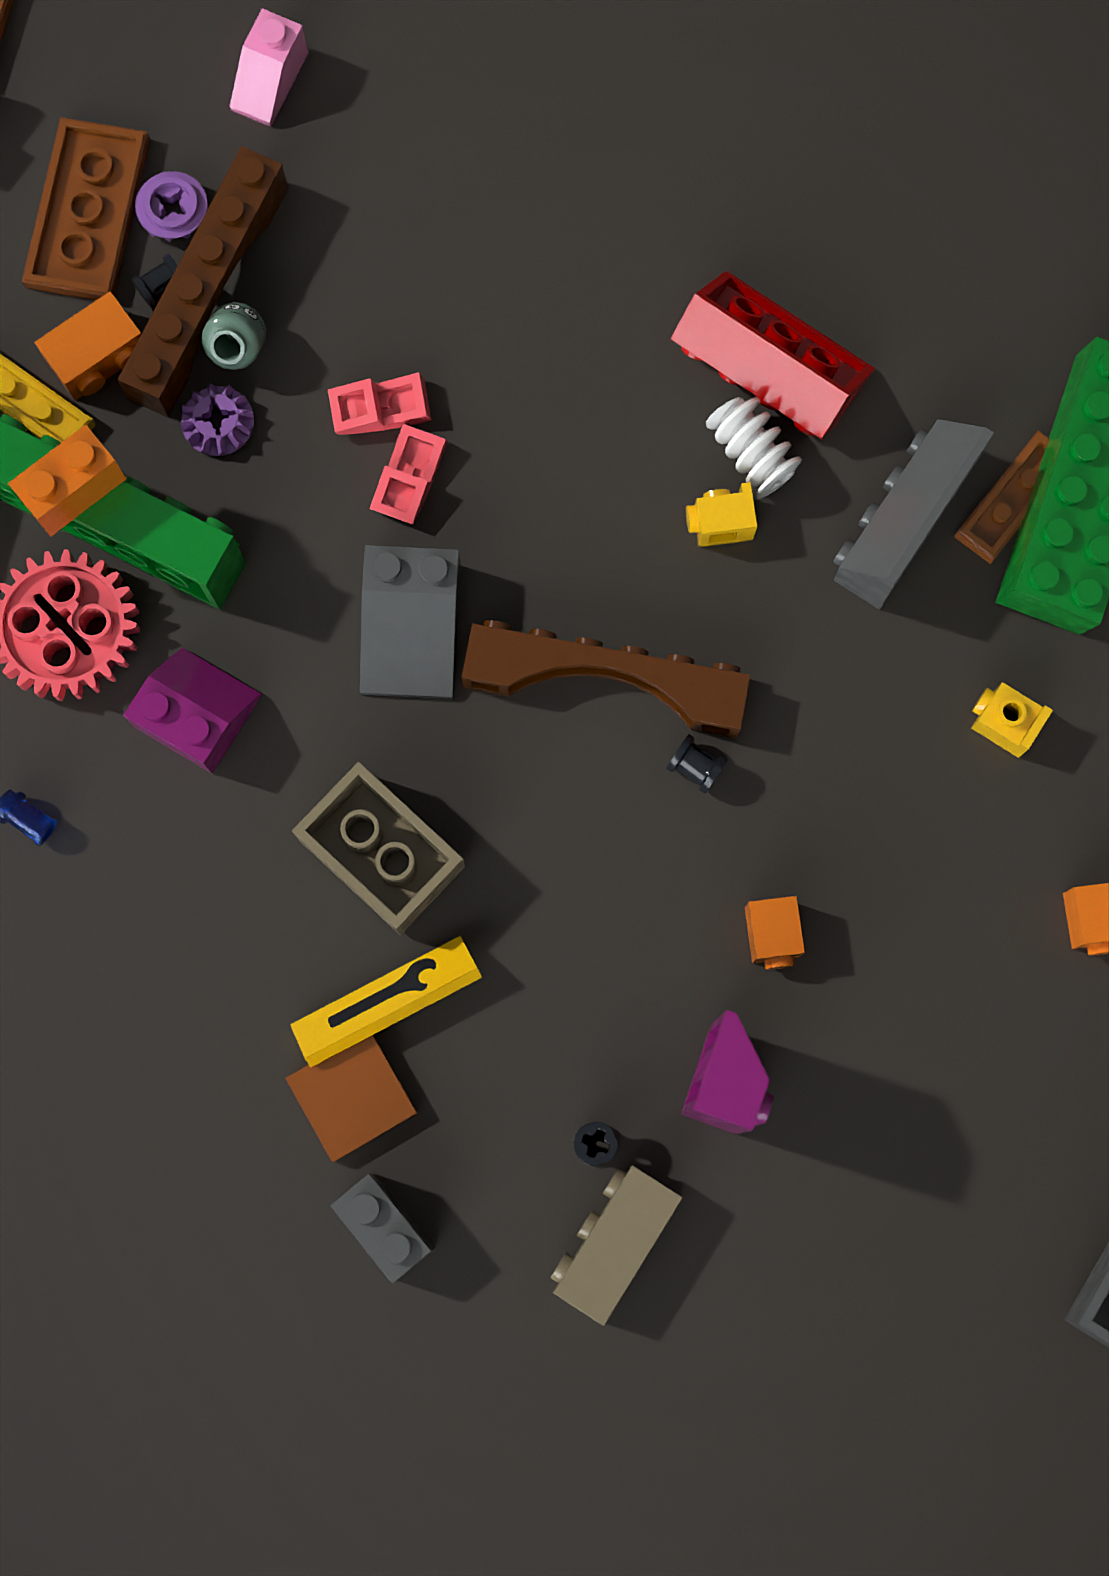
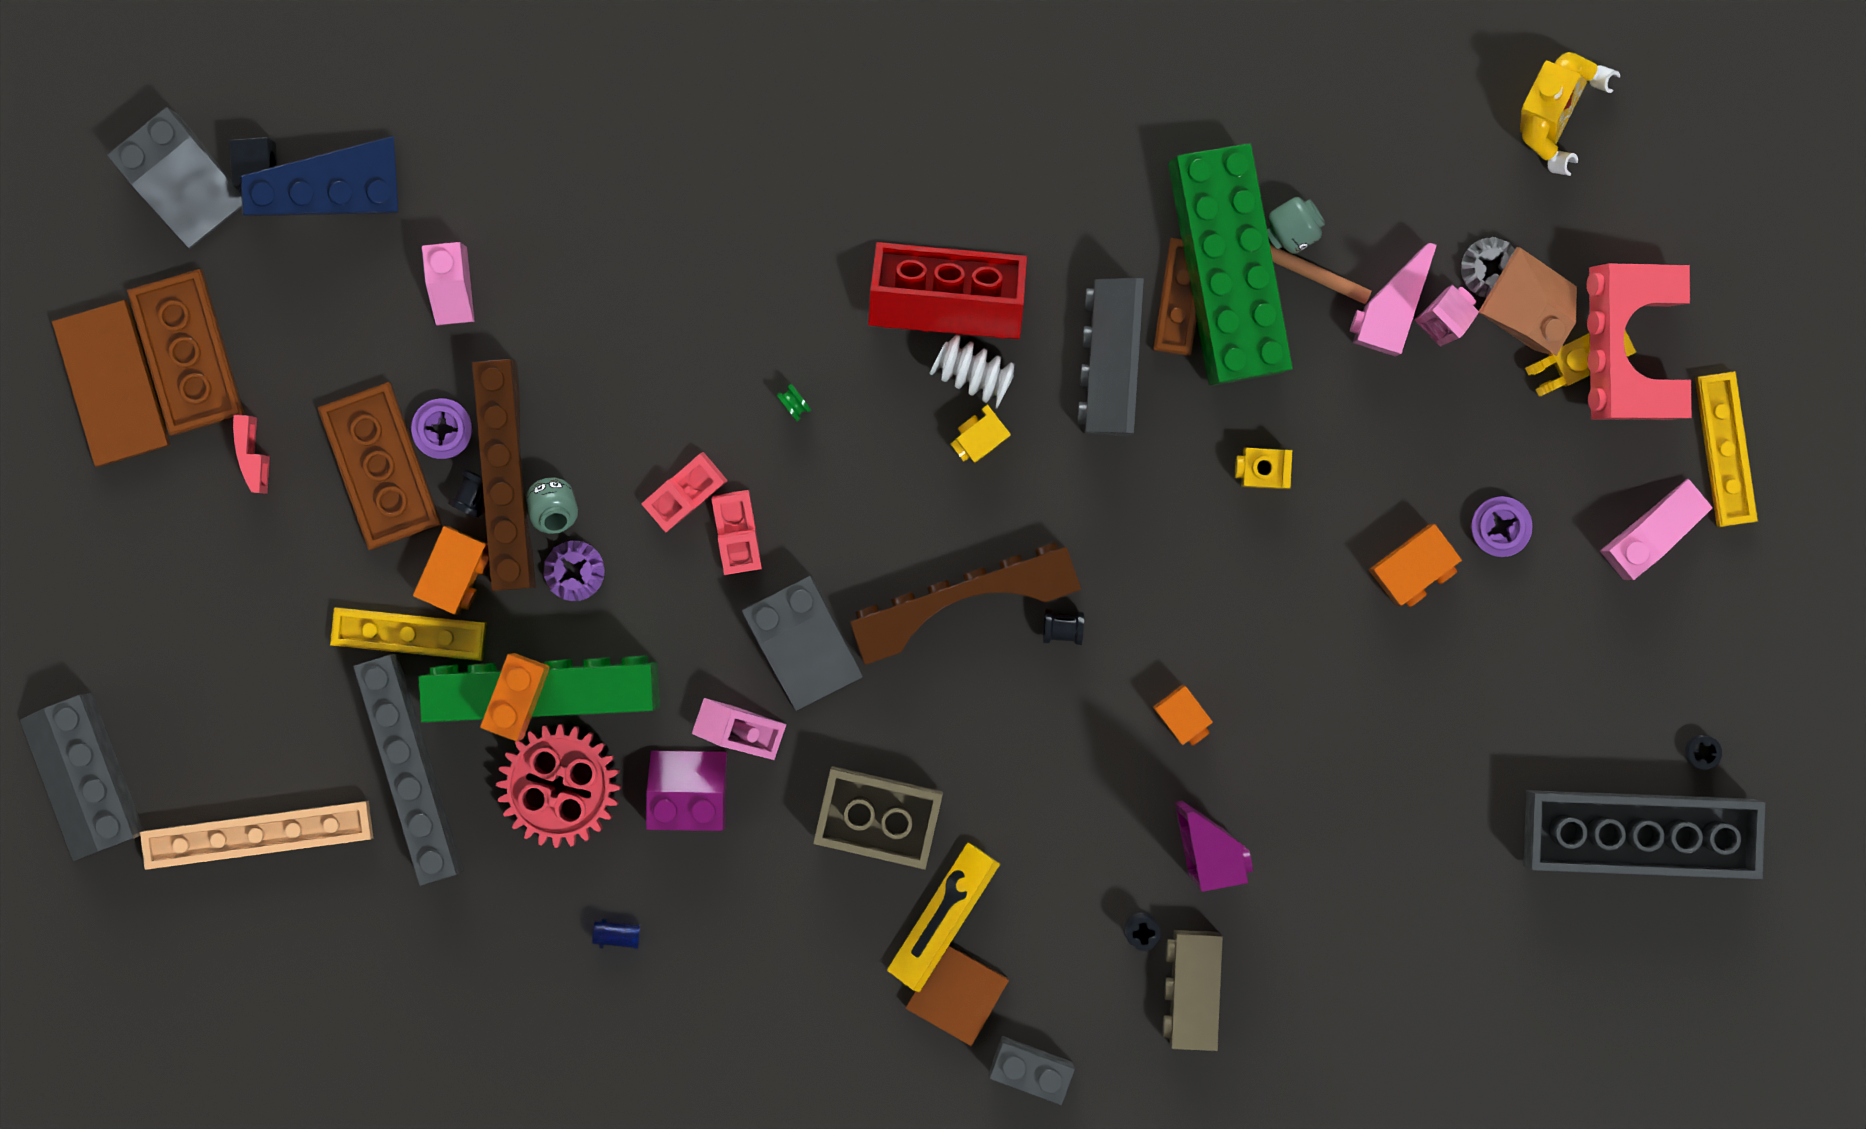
camera: 30 degrees left, 10 degrees up
(288, 674) = (738, 729): none -> bright pink slope
(547, 376) = (794, 402): none -> green bush

